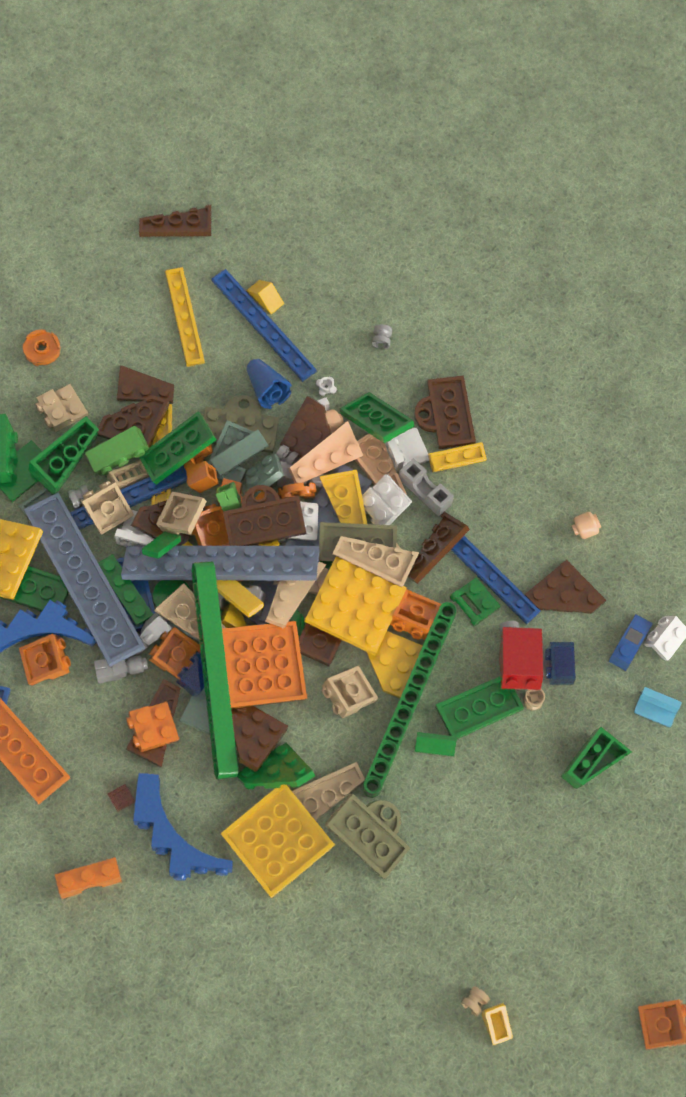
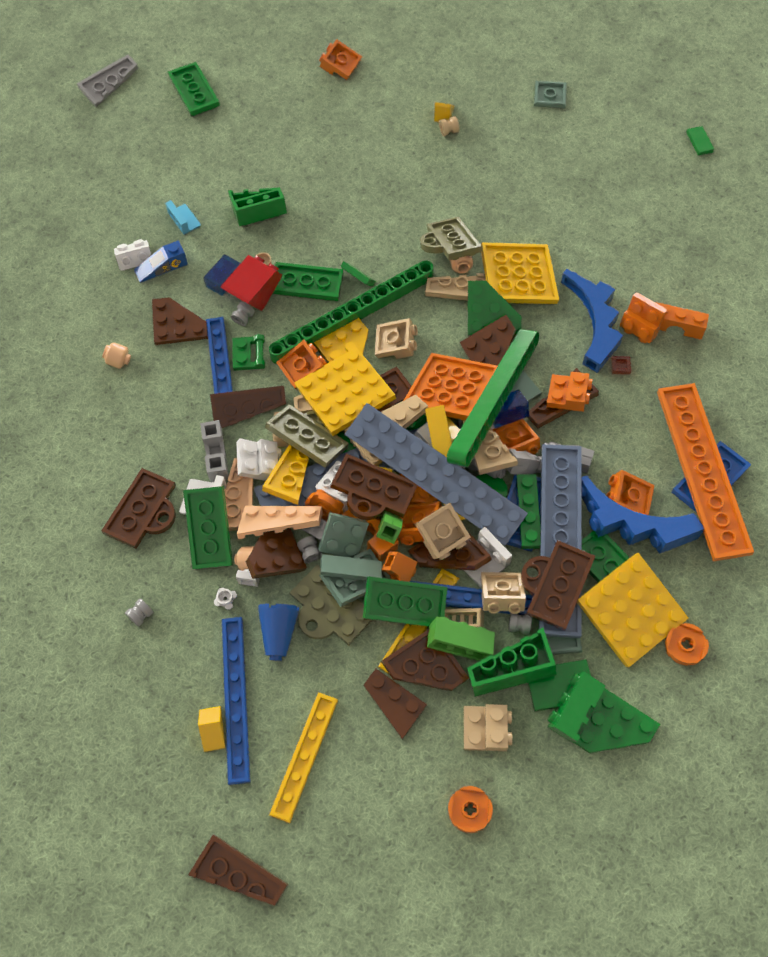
camera: 140 degrees left, 5 degrees down
(64, 532) = (557, 583): none -> reddish brown plate
(120, 849) = (643, 318): none -> orange plate
(161, 545) = (479, 515): green tile -> none
(381, 560) = (300, 408): tan wing -> none
(457, 457) = (167, 466): yellow tile -> none

